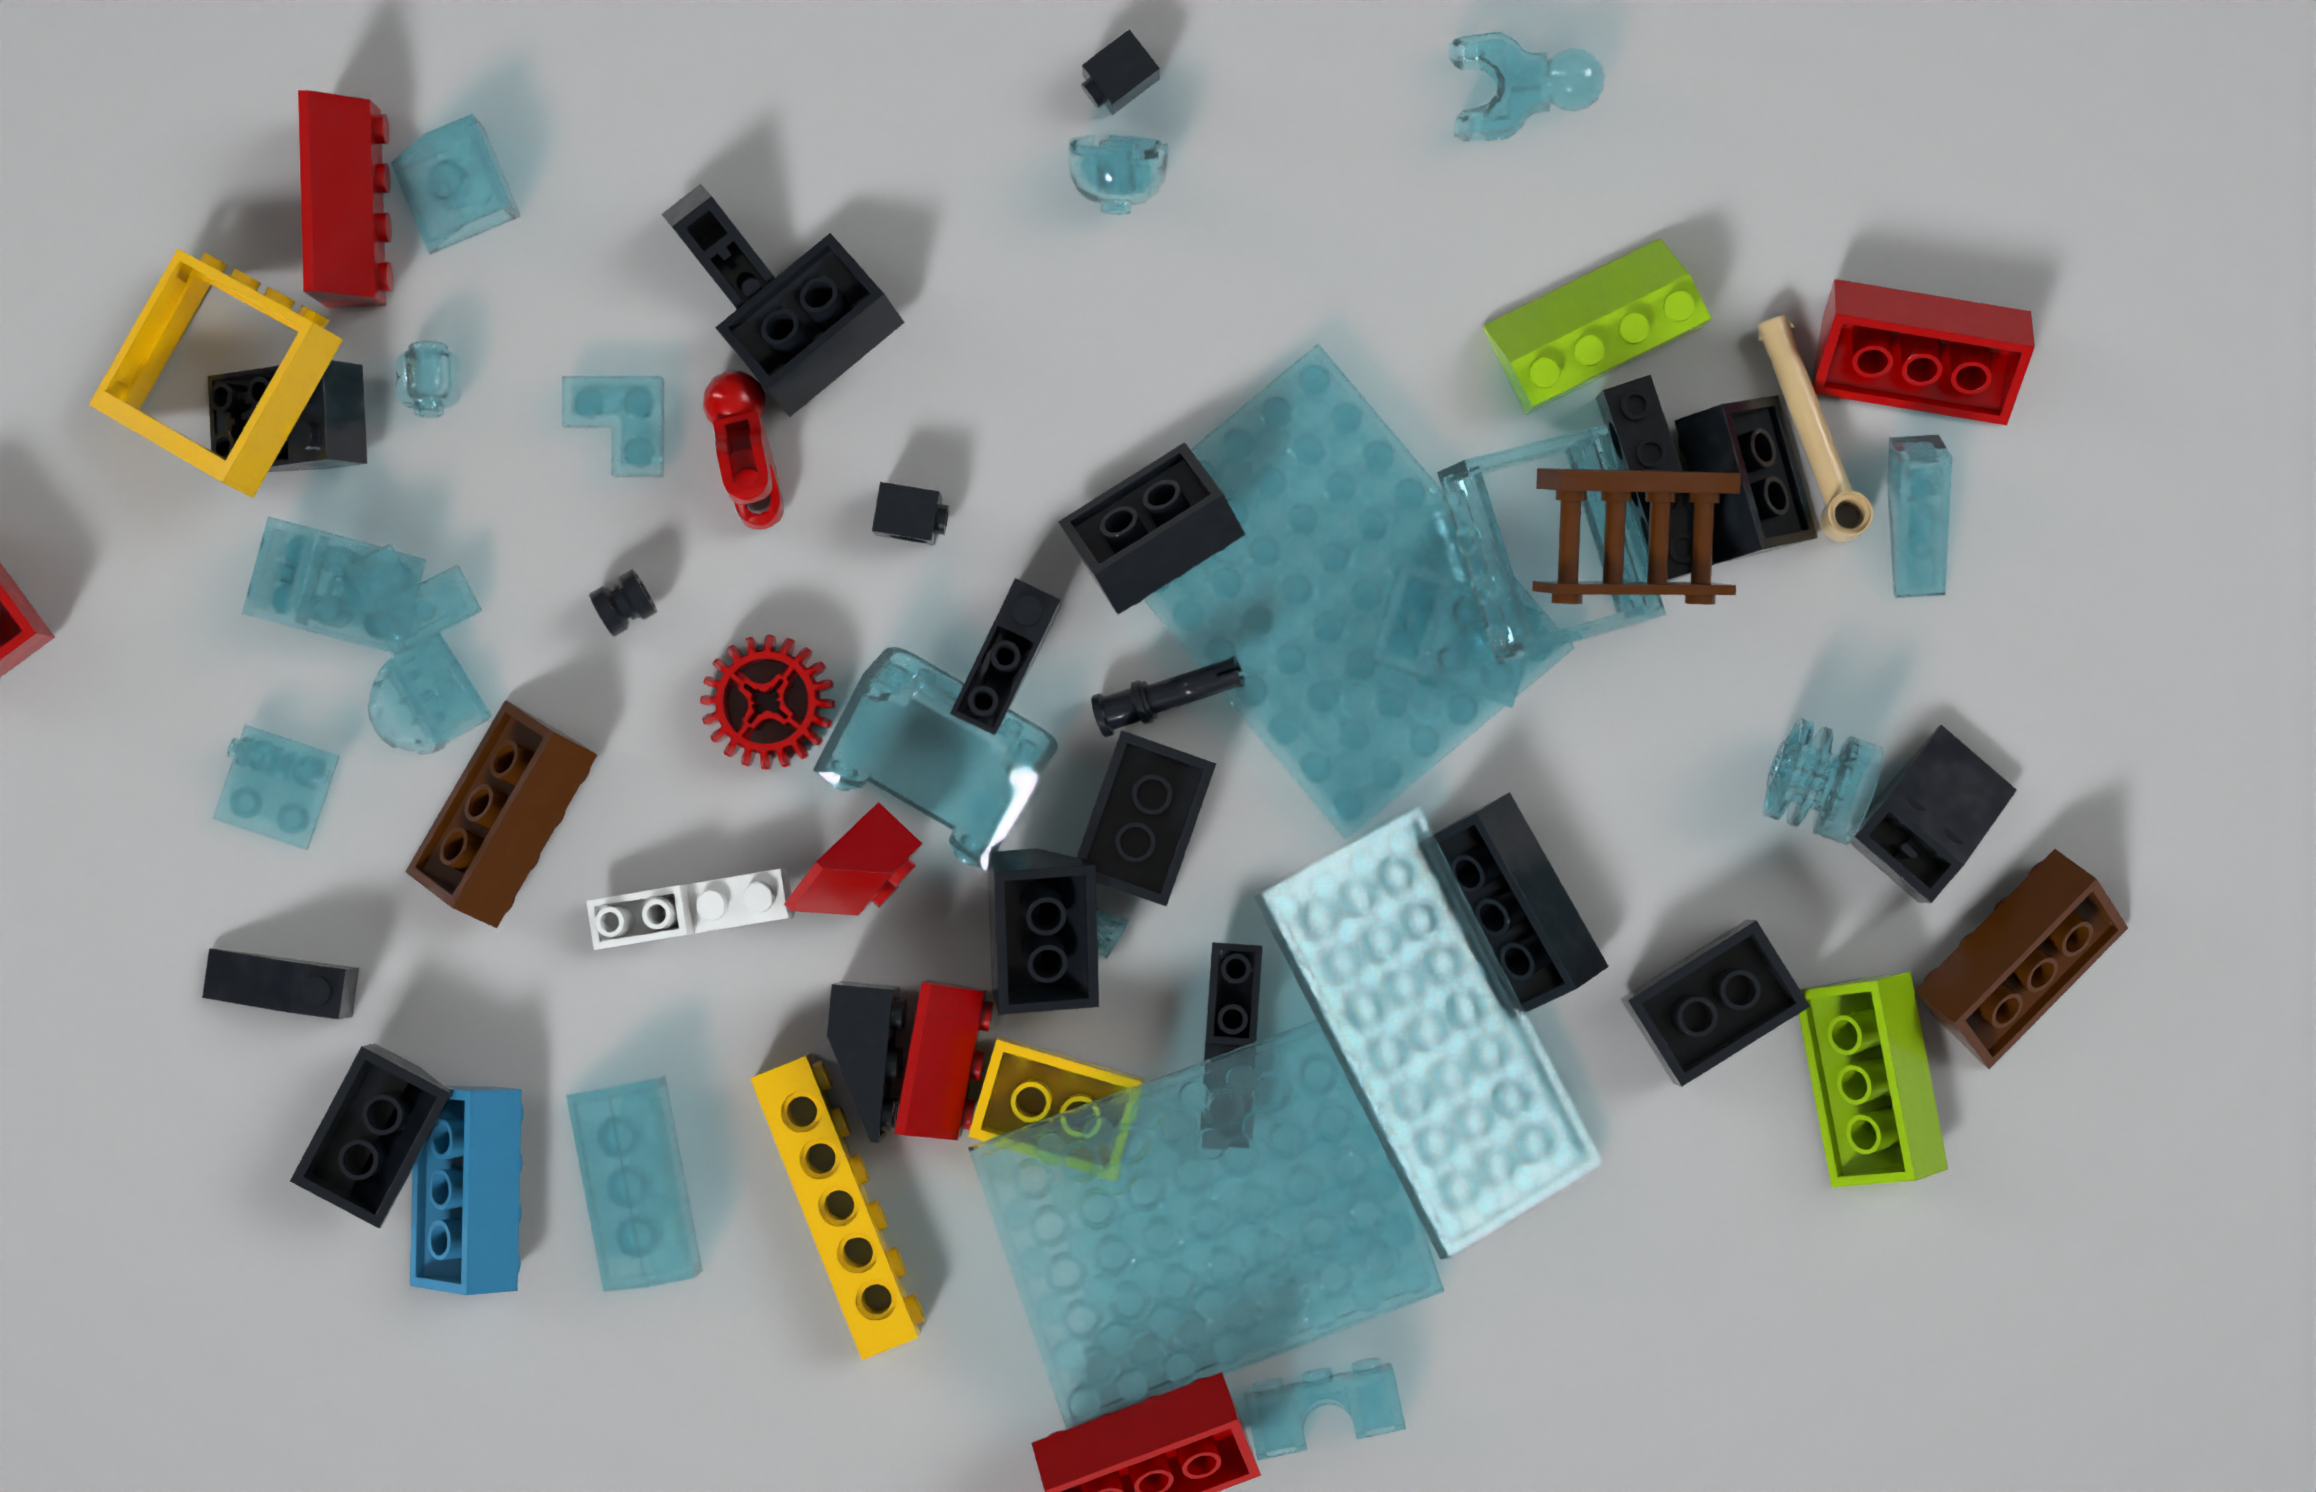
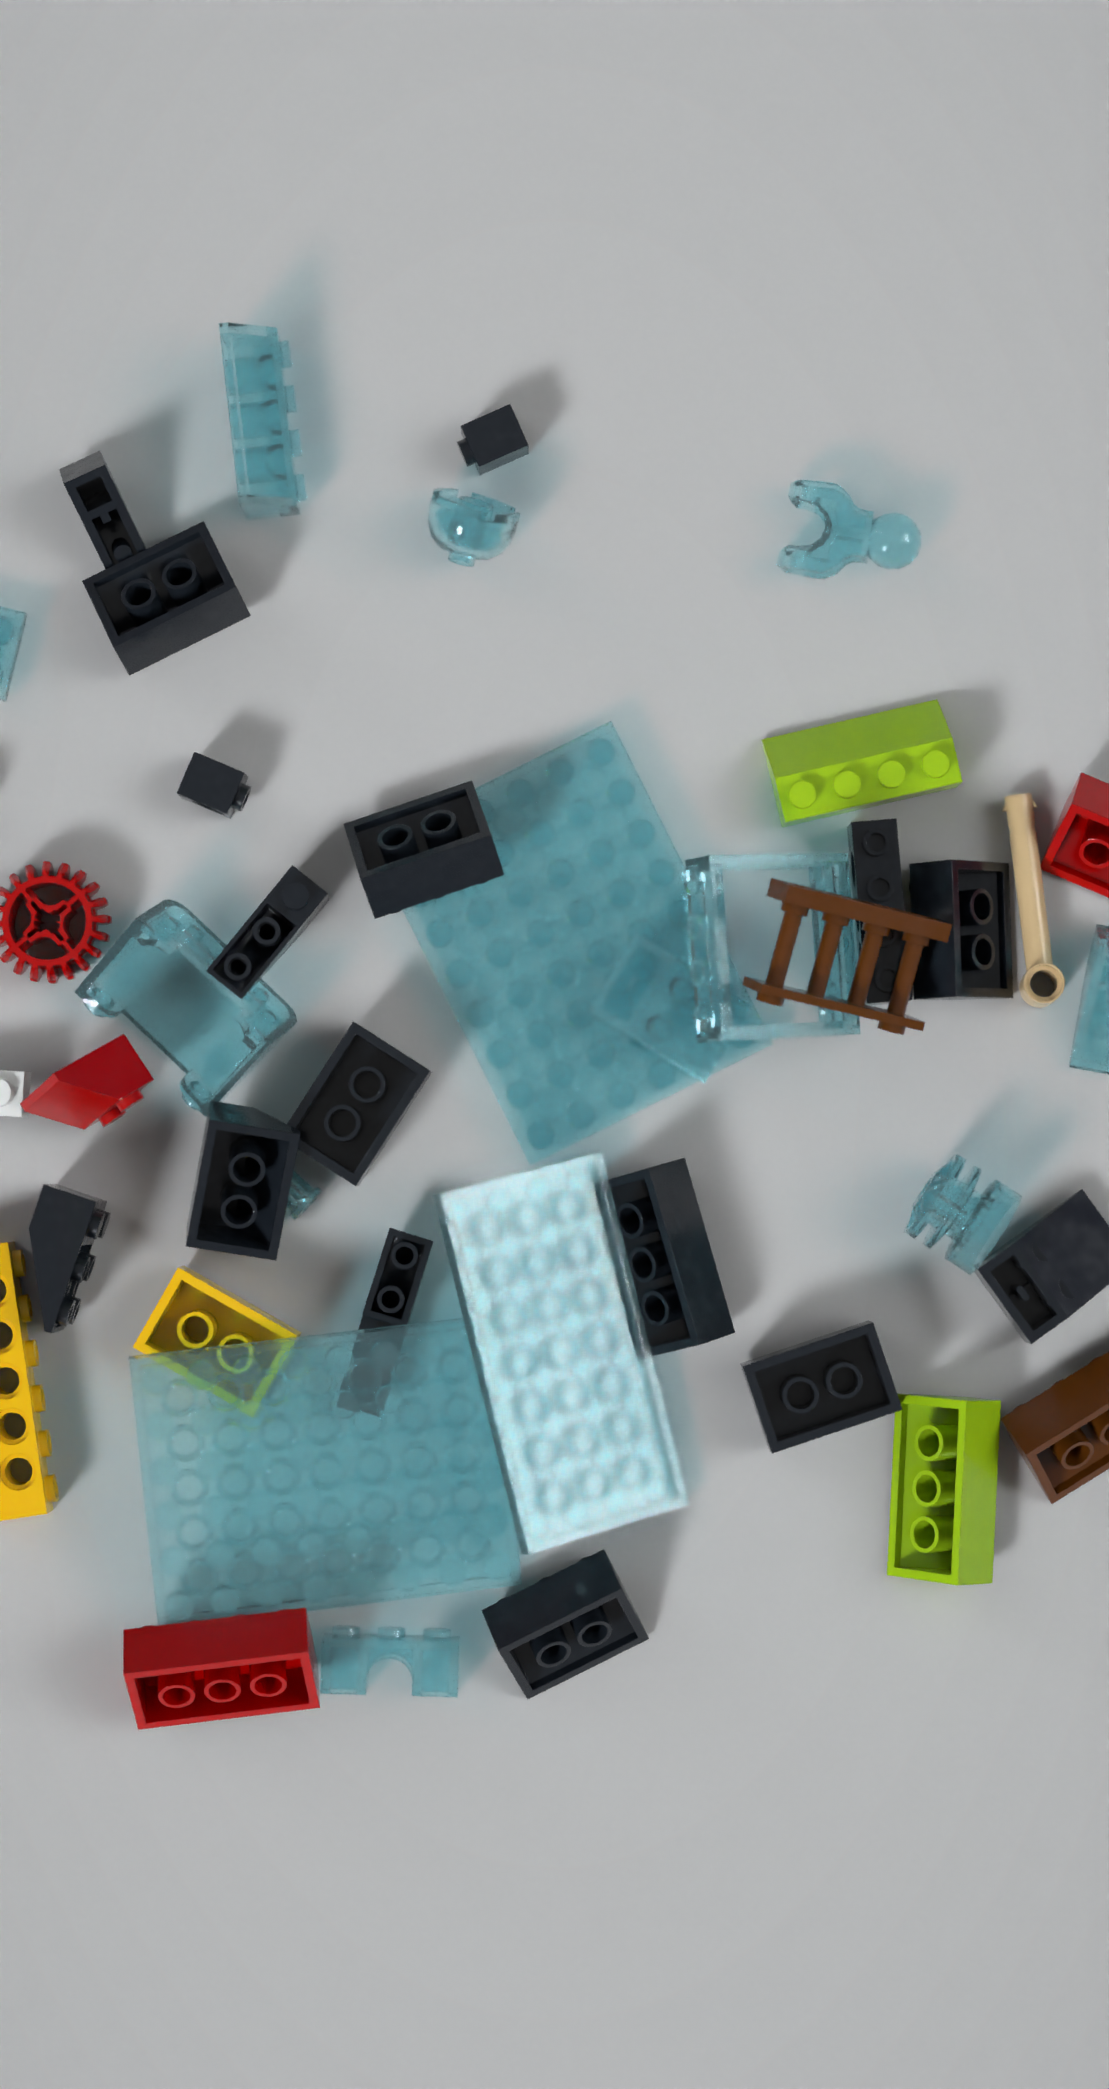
camera: 15 degrees right, 0 degrees up
(747, 468) = (80, 692): red piece -> none
(866, 111) = (261, 421): none -> clear light blue slope
(943, 1061) = (127, 1275): red slope -> none
(1145, 701) = (381, 1000): black pin -> none
(1500, 1322) = (564, 1624): none -> black slope

